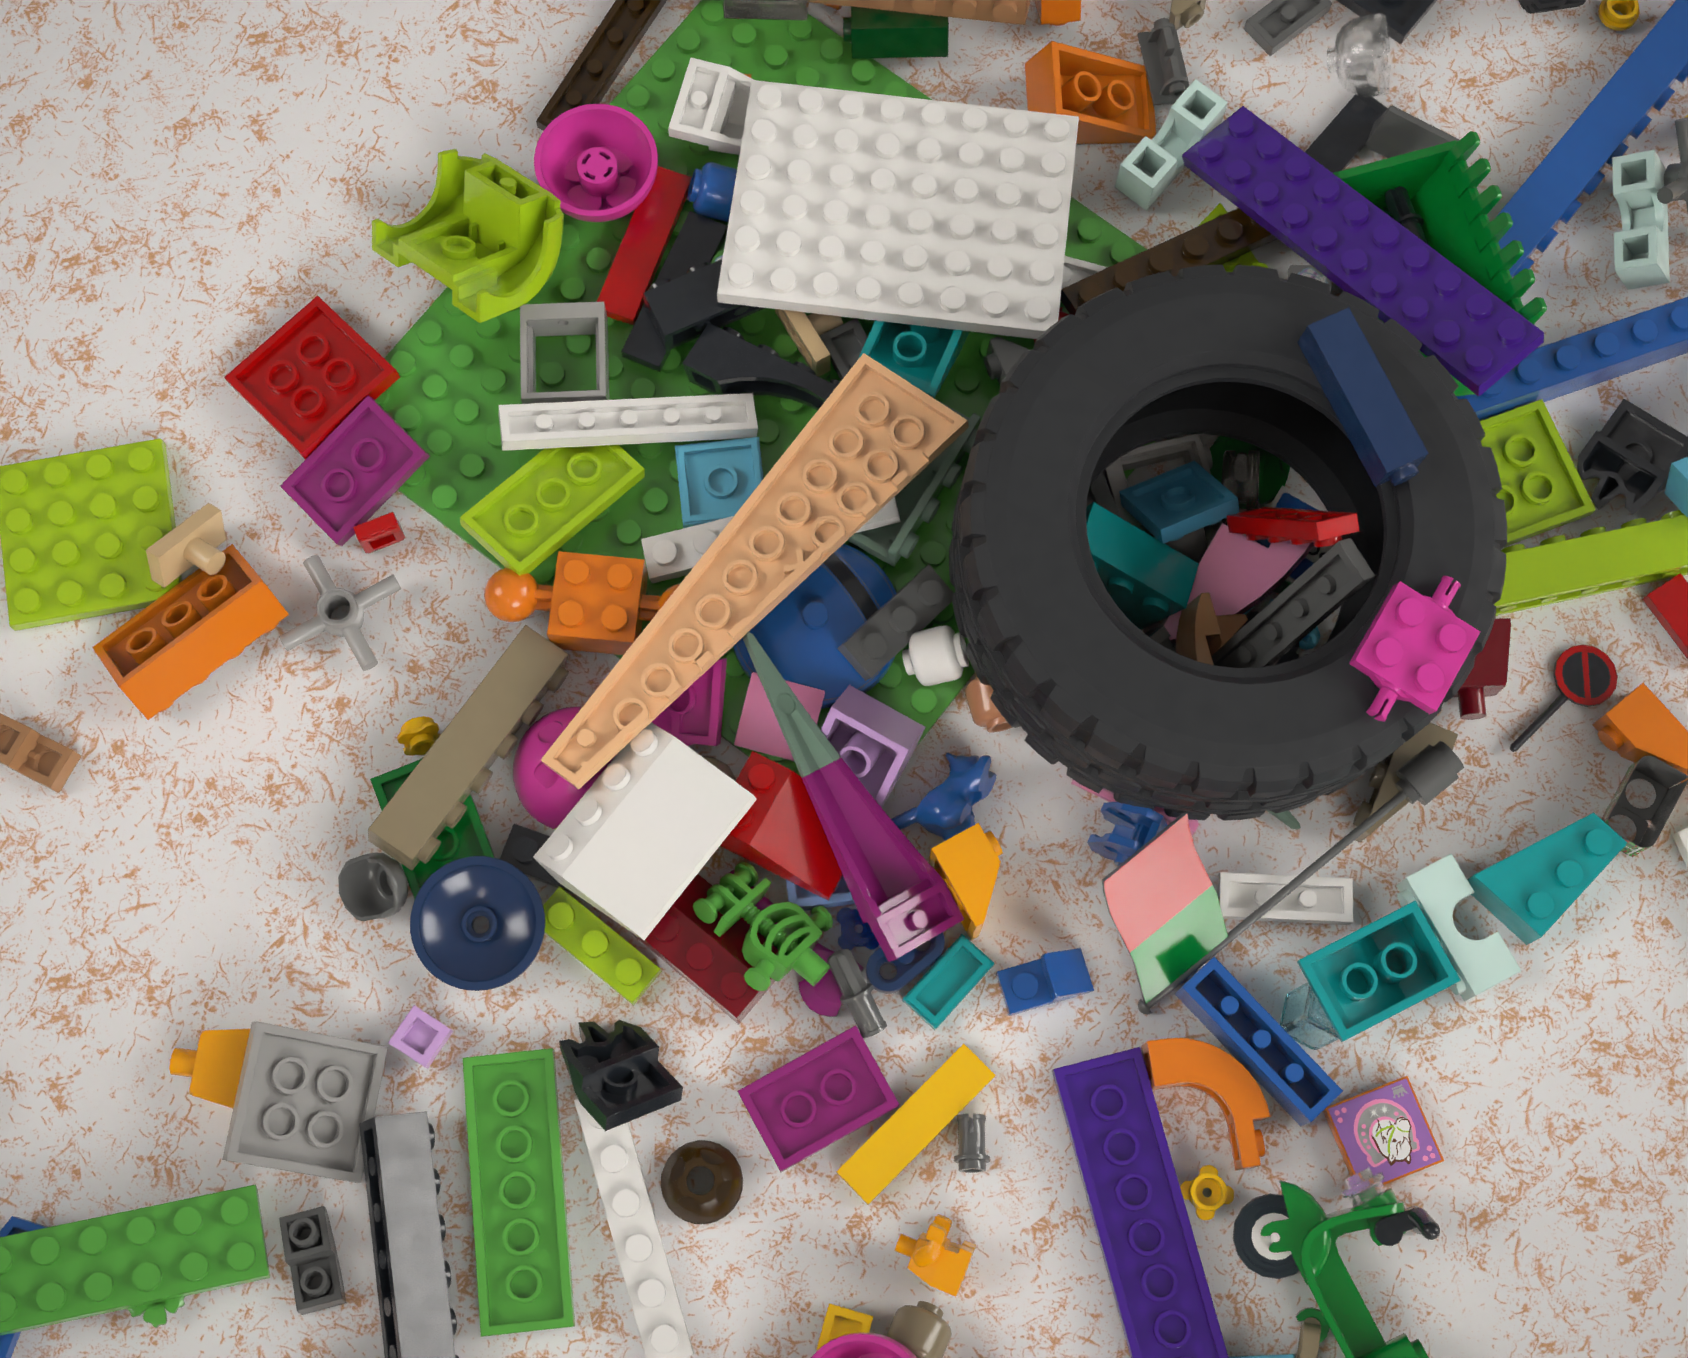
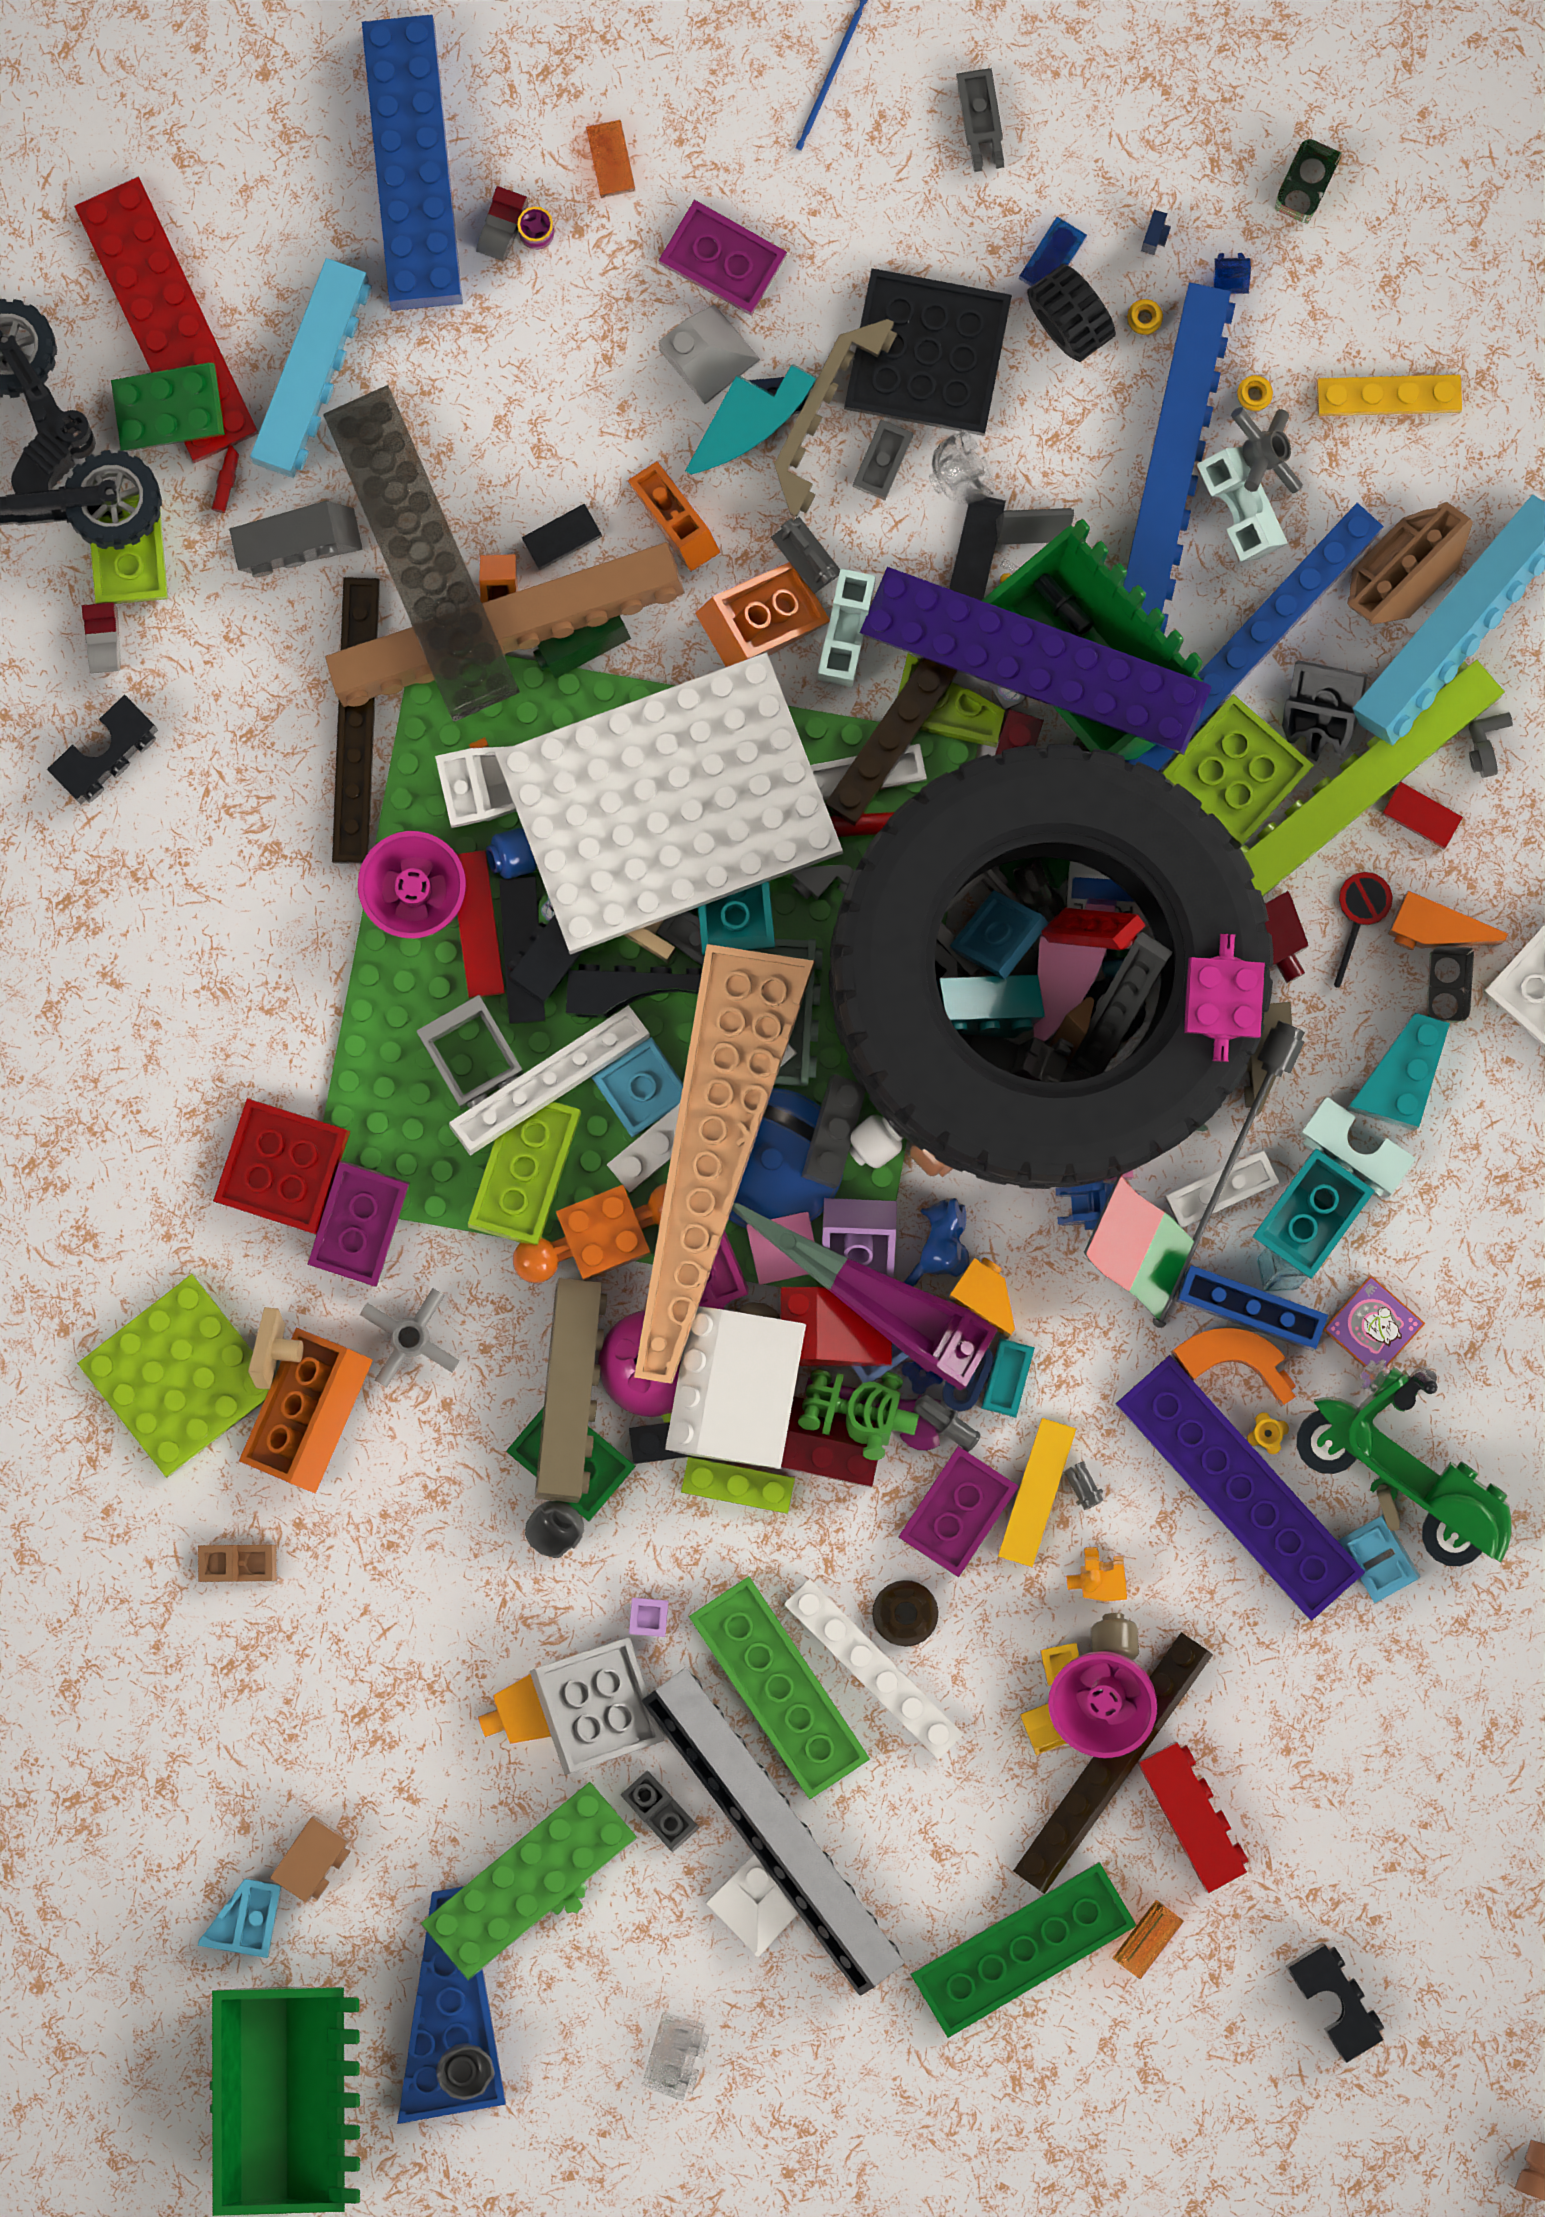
camera: 25 degrees left, 10 degrees up
(379, 533) = (403, 1261): red tile -> none
(418, 735) = (523, 1399): yellow plate -> none
(445, 919) = (653, 1542): dark blue dish -> none
(480, 235) = (351, 990): lime piece -> none
(618, 1073) = (806, 1568): black plate -> none
(1044, 981) = (1077, 1341): blue slope -> none
(1197, 628) = (1060, 1031): medium nougat slope -> none
(1363, 398) = (1102, 833): dark blue brick -> none

